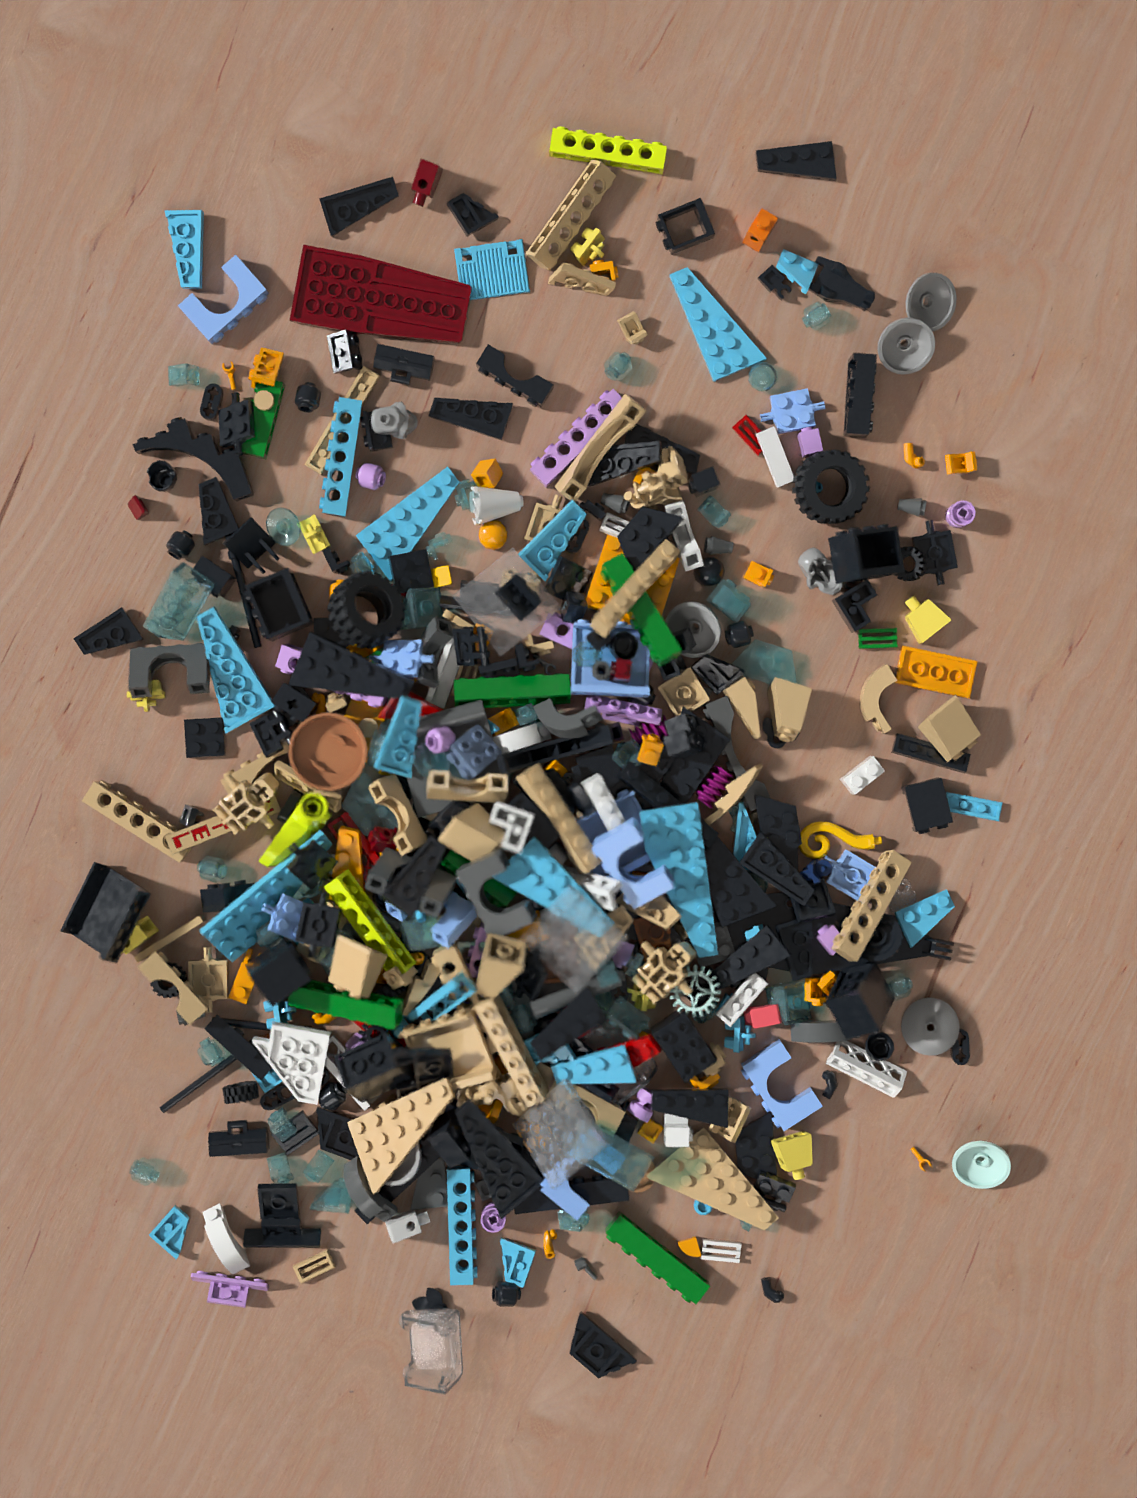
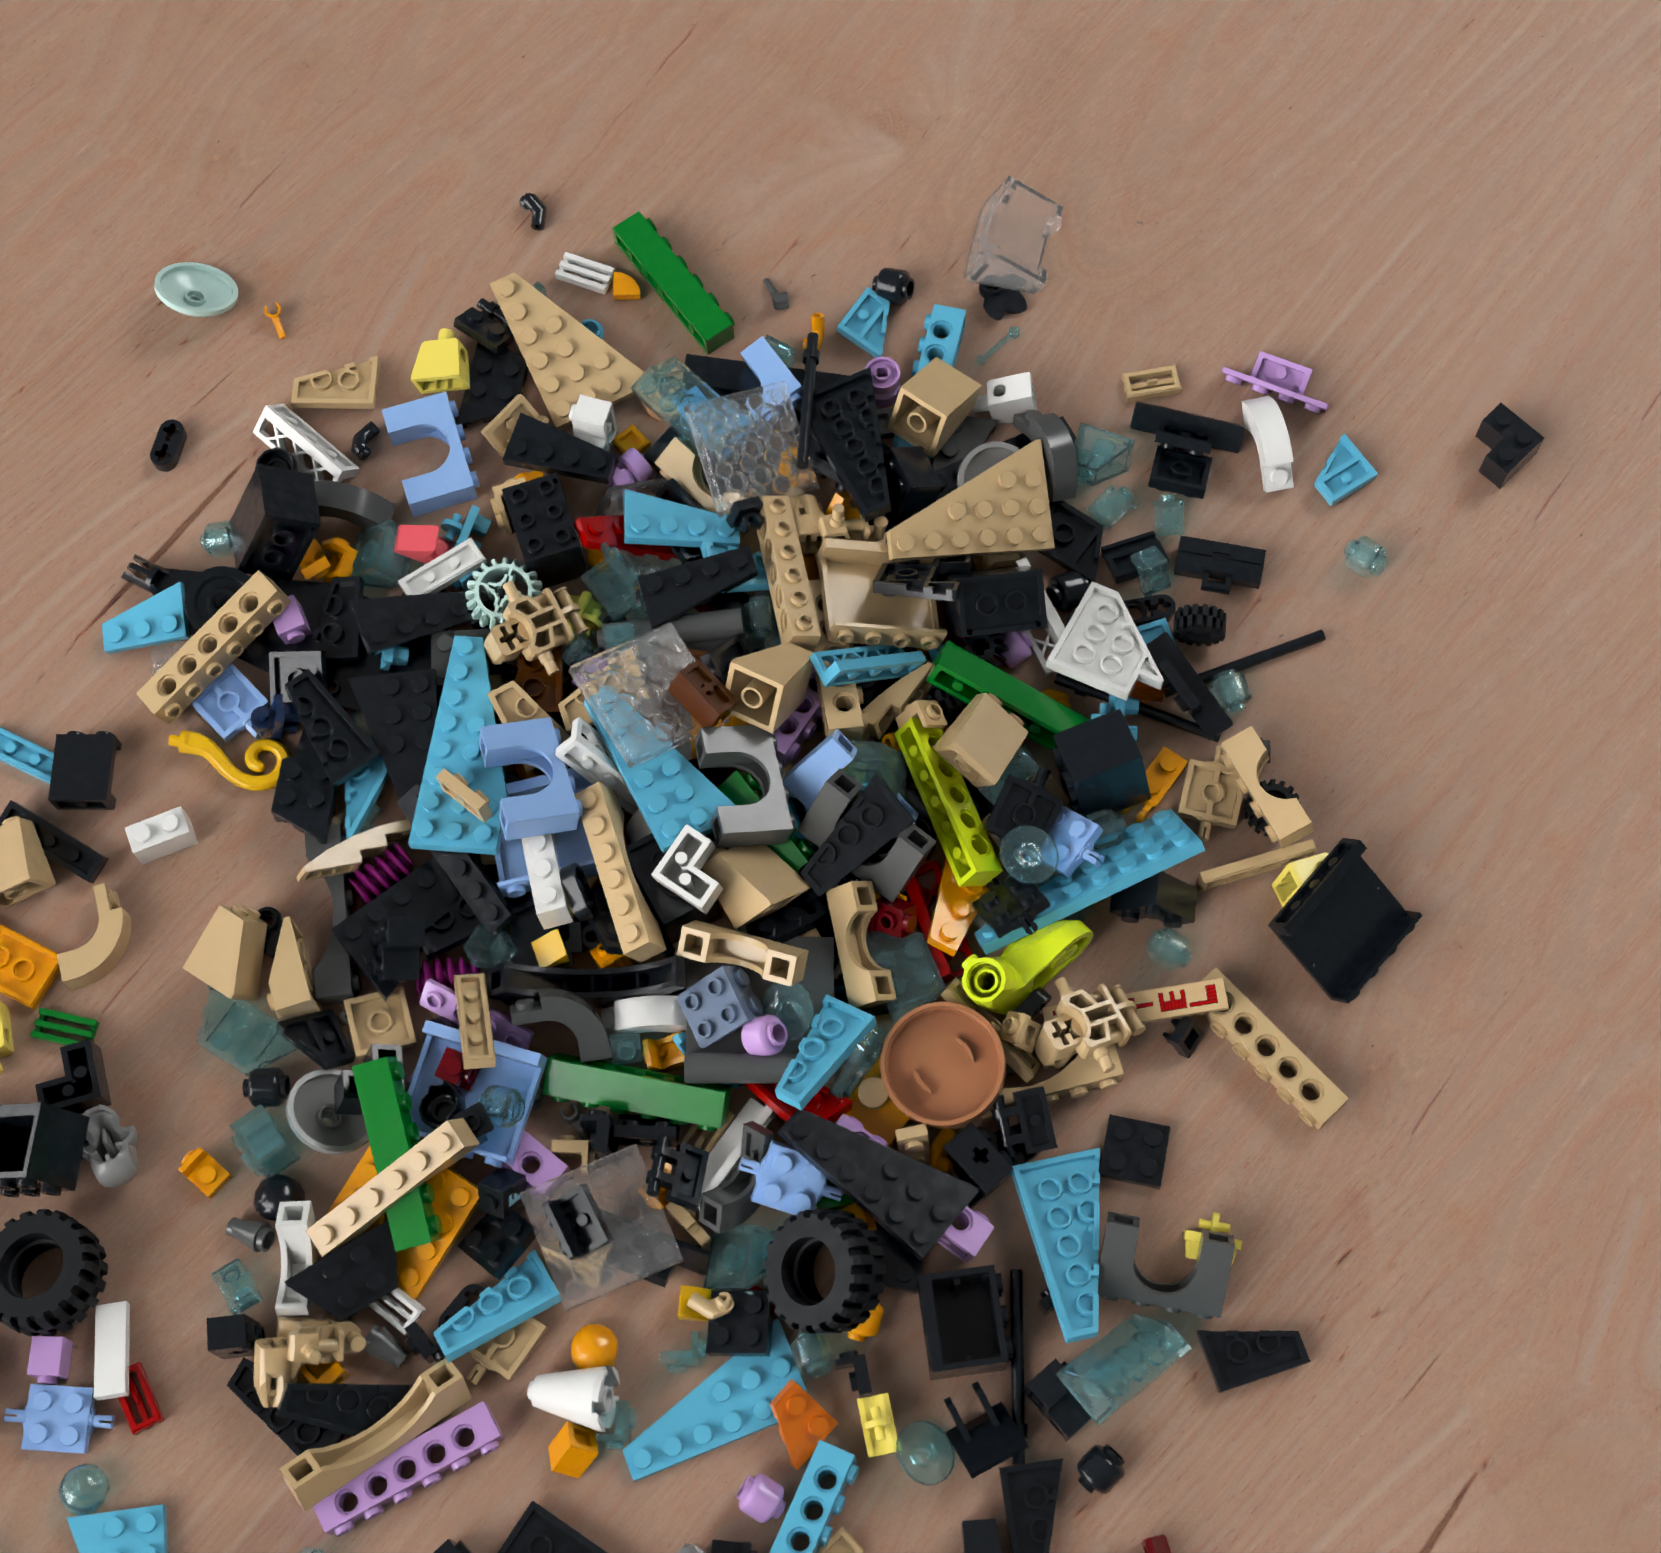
camera: 160 degrees left, 20 degrees down
(64, 1281) = (1511, 443): none -> black brick
(288, 787) = (1020, 1031): none -> tan bracket
(302, 904) = (1034, 844): none -> clear light blue dish
(359, 524) = (800, 1422): none -> orange wing
(416, 1281) = (1013, 333): none -> clear light blue hinge
(428, 574) = (711, 1308): none -> tan arm
(451, 1202) = (933, 405): none -> tan slope
(537, 944) = (702, 694): none -> reddish brown hinge
(542, 1216) = (811, 360): none -> black bar
(551, 1086) = (744, 513): none -> black tile
(591, 763) = (550, 949): none -> yellow slope
(597, 1349) = (790, 194): black wing -> none
(604, 667) = (480, 1076): dark grey cone -> none
(619, 701) = (474, 1021): none -> tan tile
(650, 749) = (452, 943): light orange bracket -> none
(676, 844) = (458, 789): none -> tan plate
(859, 1118) = (340, 389): none -> tan wing
(926, 1012) = (200, 495): light grey dish -> none

